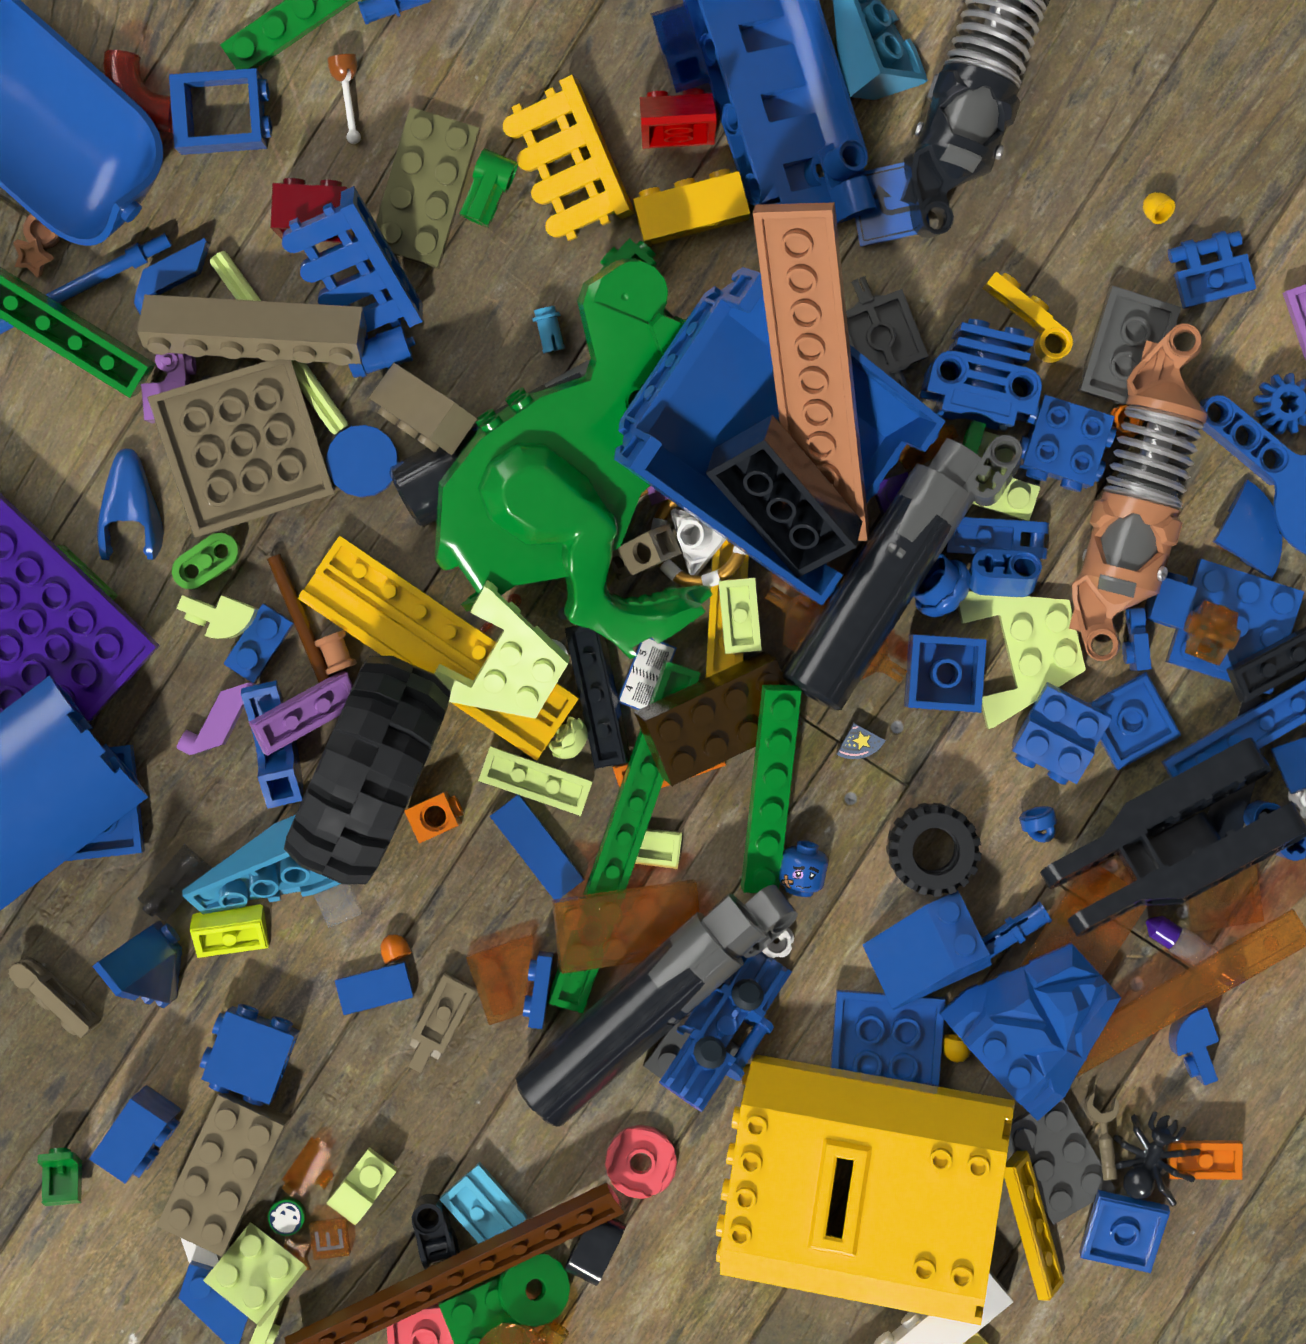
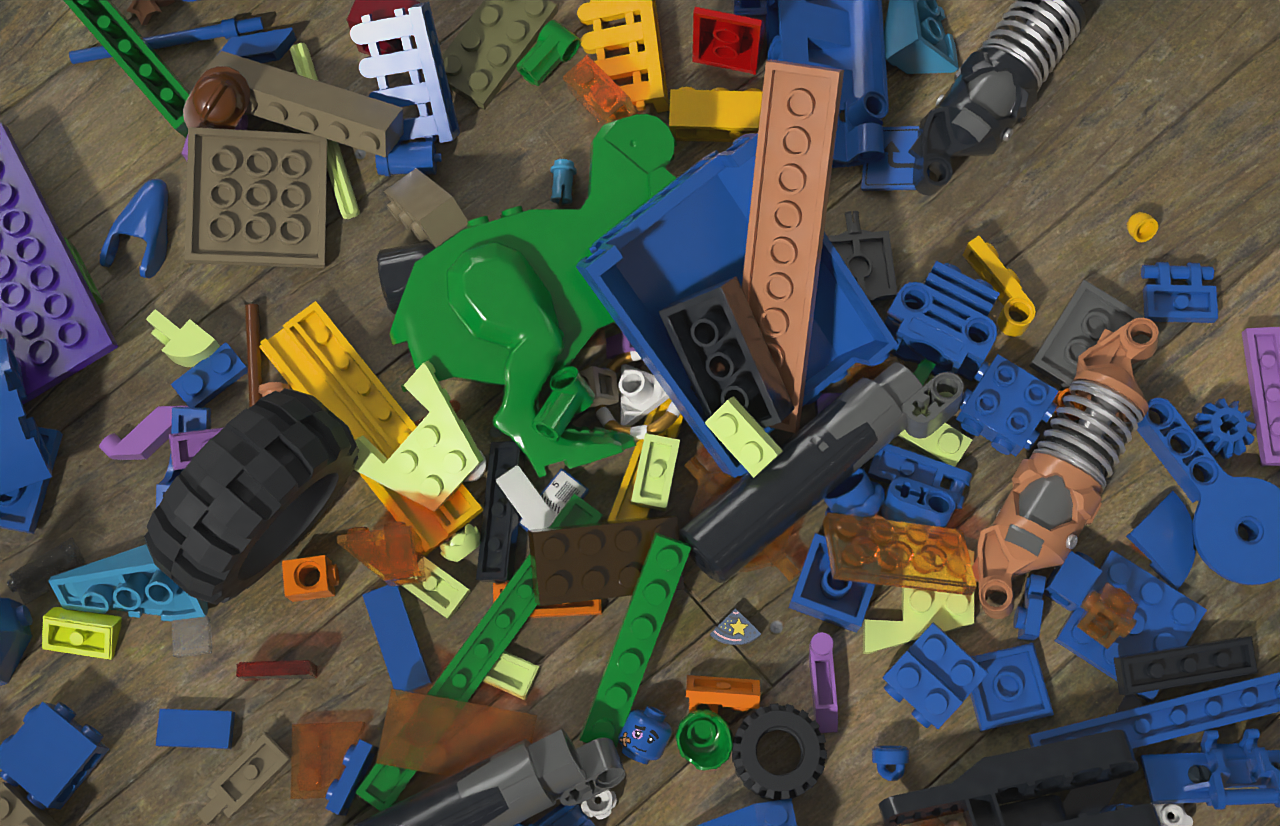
camera: 20 degrees right, 15 degrees down
(166, 358) = (217, 99): none -> reddish brown piece
(207, 561) = (191, 289): bright green plate -> none
(361, 461) = (355, 246): blue tile -> none
(394, 948) = (227, 695): orange hinge -> none
(434, 912) = (276, 670): none -> clear red tile
(509, 780) = (389, 553): none -> clear orange slope
(561, 227) = (598, 92): none -> clear orange brick
(620, 678) = (525, 499): none -> white sticker
(635, 573) = (569, 396): none -> green piece
(822, 569) = (743, 436): none -> yellowish green plate
(861, 857) = (704, 739): none -> green hair
(865, 806) = (728, 692): none -> orange plate
(957, 770) = (823, 683): none -> medium lavender piece
(999, 632) = (898, 554): none -> clear orange plate

